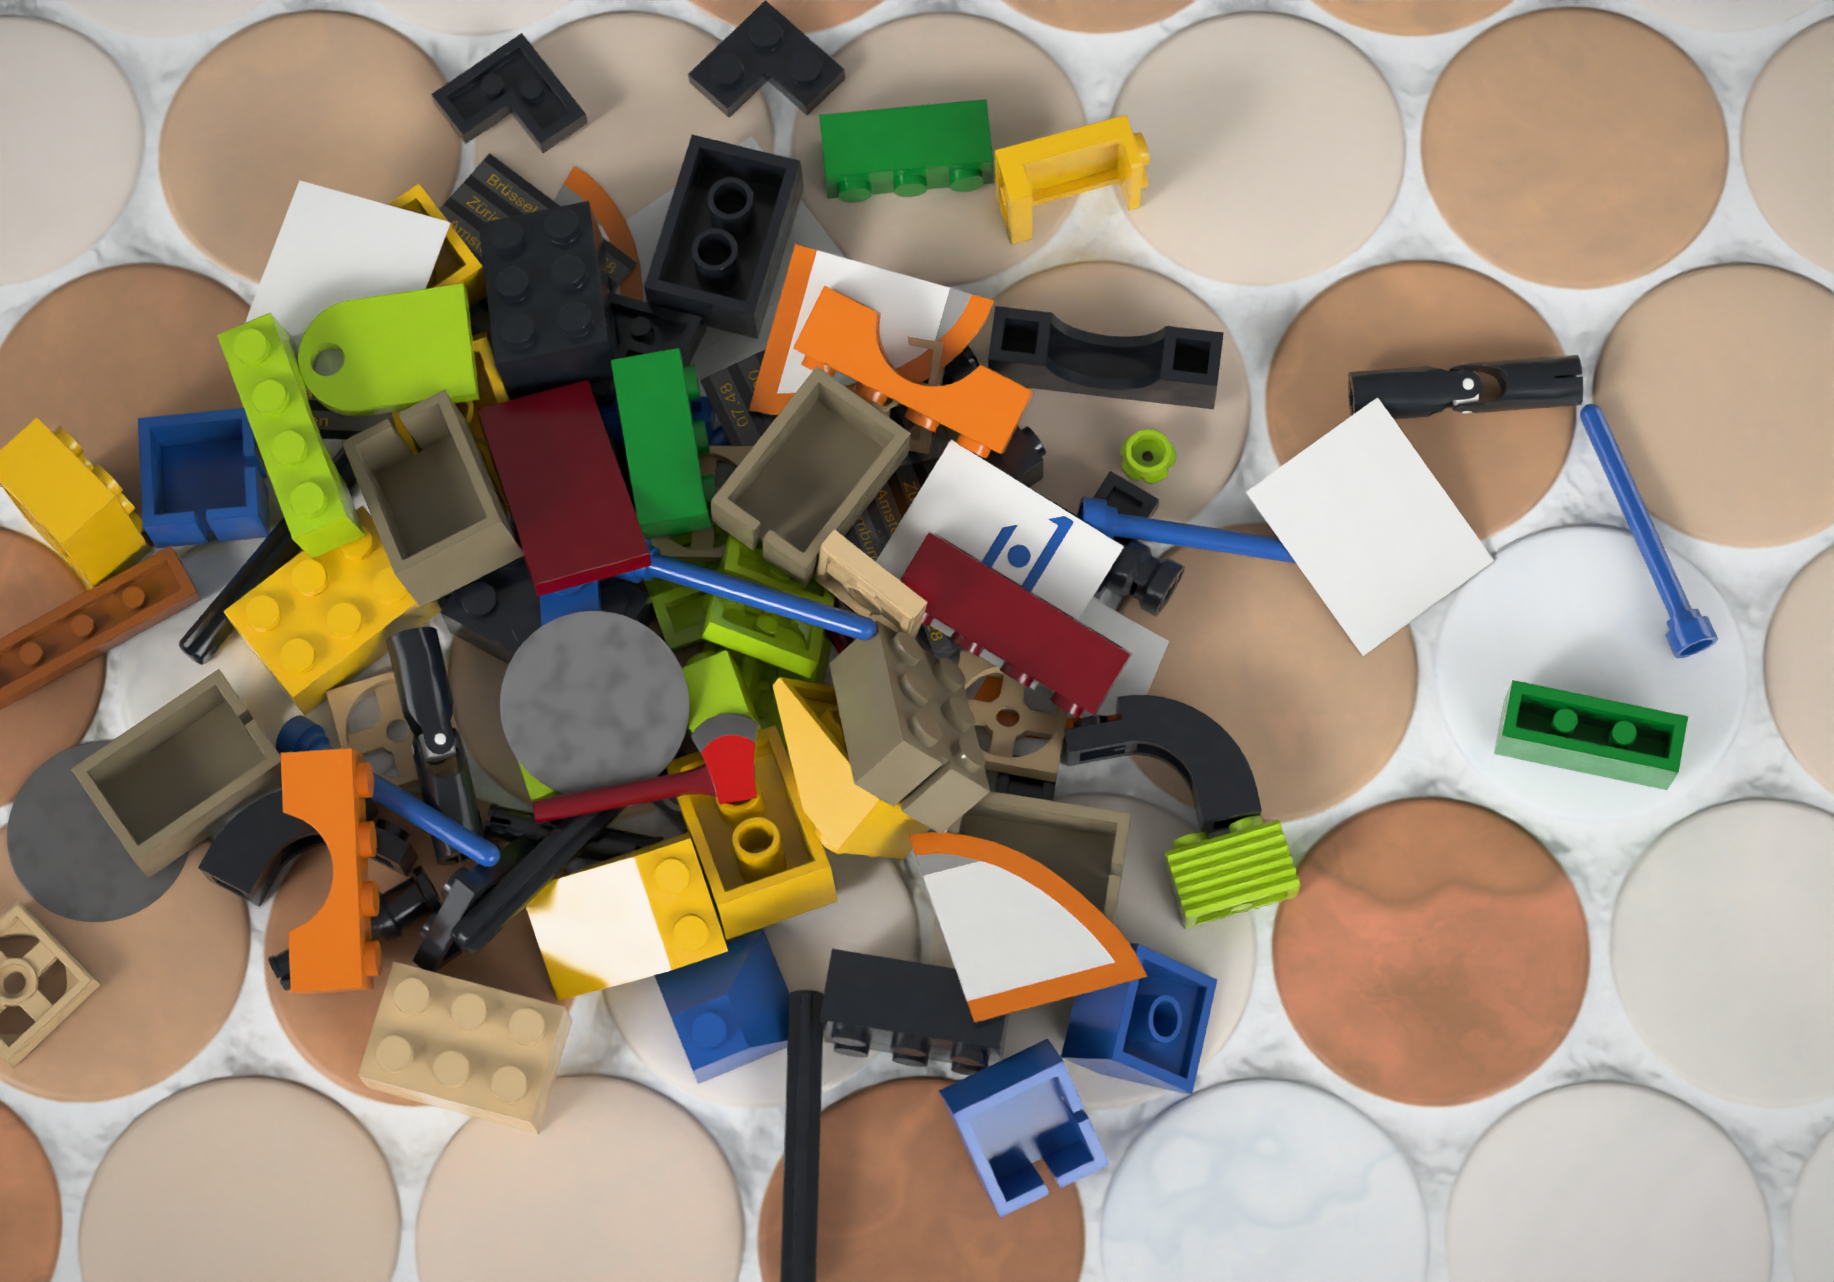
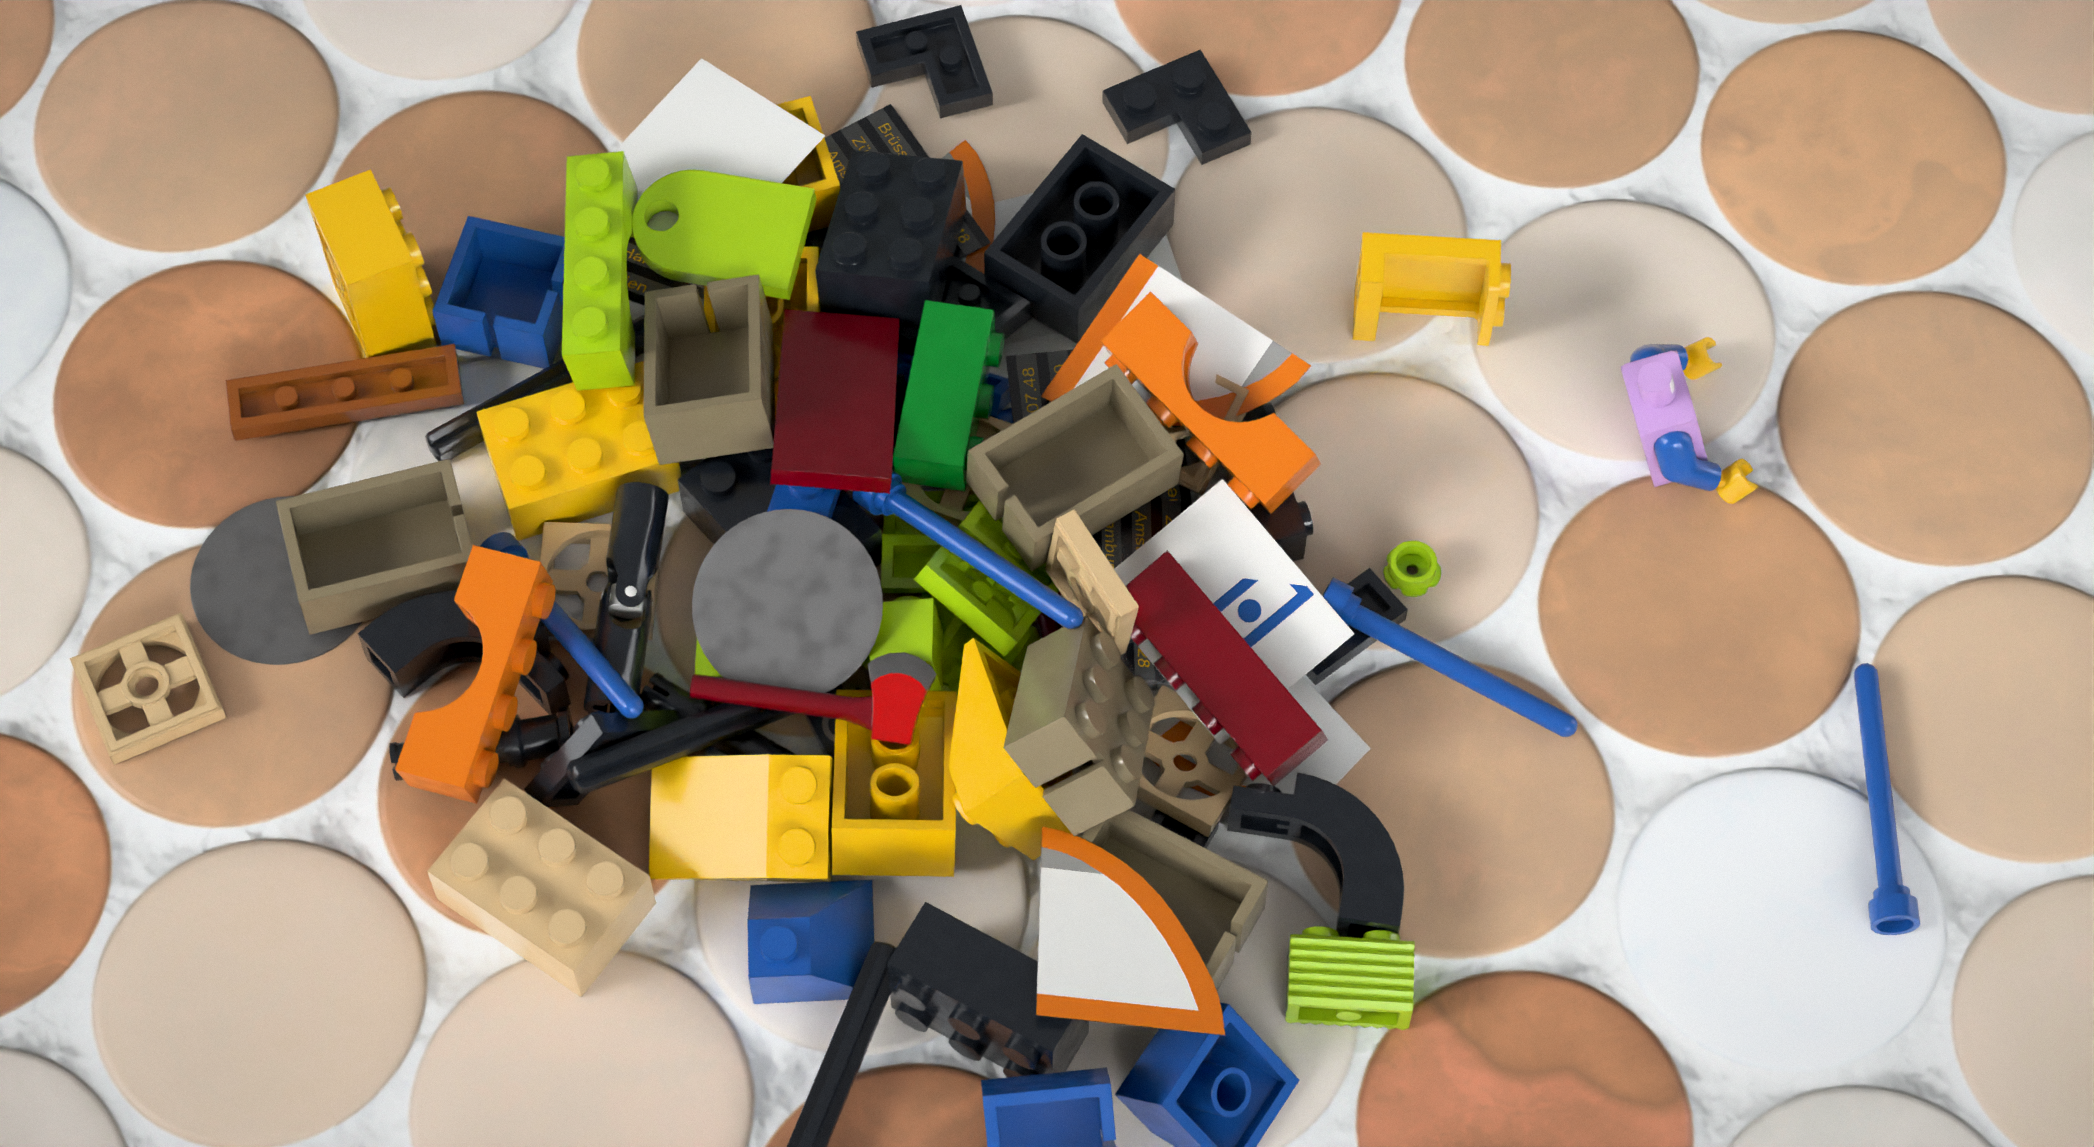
camera: 15 degrees right, 10 degrees down
(907, 150) = (1282, 219): green brick -> none
(1145, 577) = (1367, 677): black wheel -> none
(1159, 367) = (1456, 490): black arch -> none
(1333, 229) = (1669, 420): none -> torso
(1370, 526) = (1607, 704): white sticker -> none
(1429, 390) = (1715, 599): black piece -> none
(1591, 735) = (1756, 968): green brick -> none

